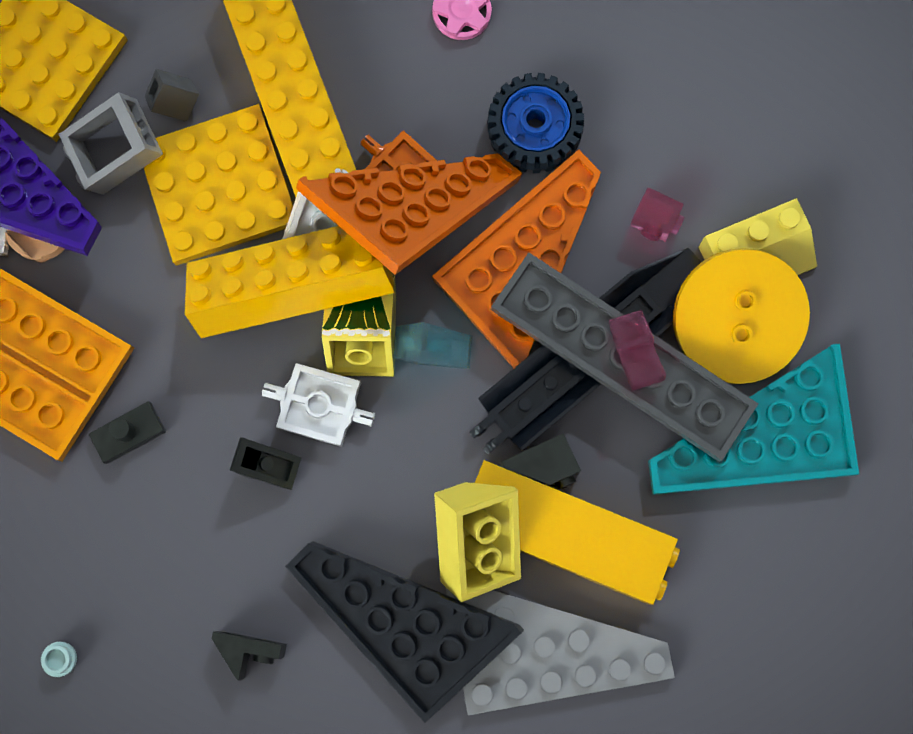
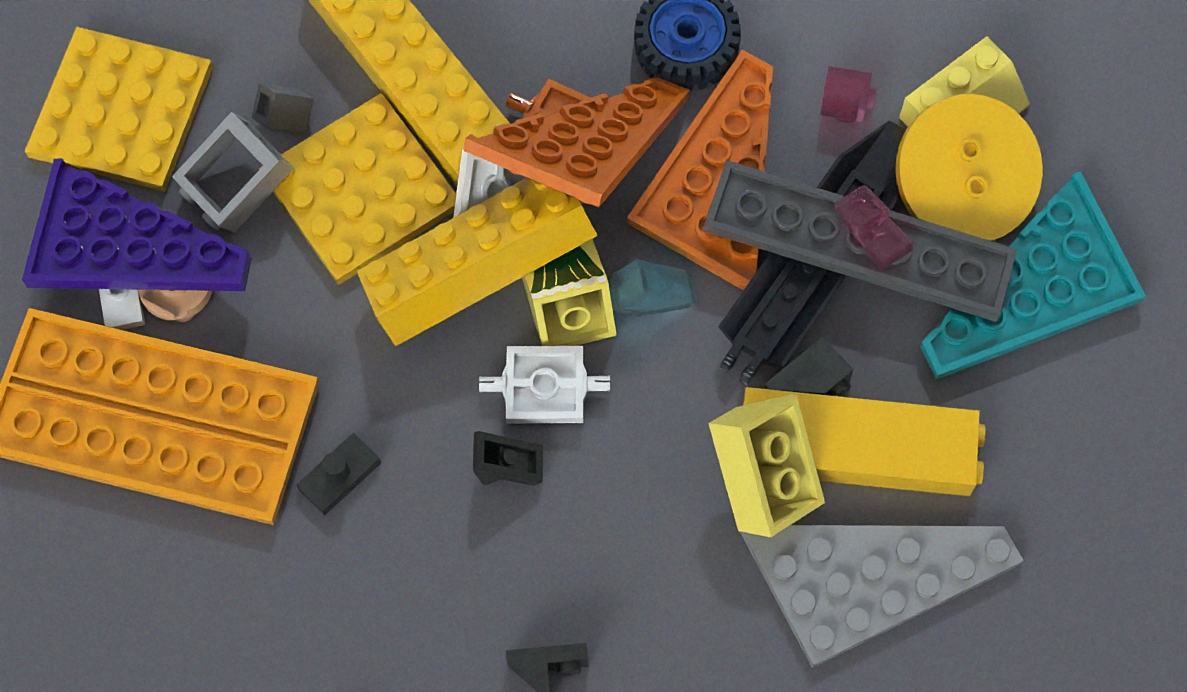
camera: 20 degrees left, 10 degrees down
(409, 632) = (722, 592): black wing -> none

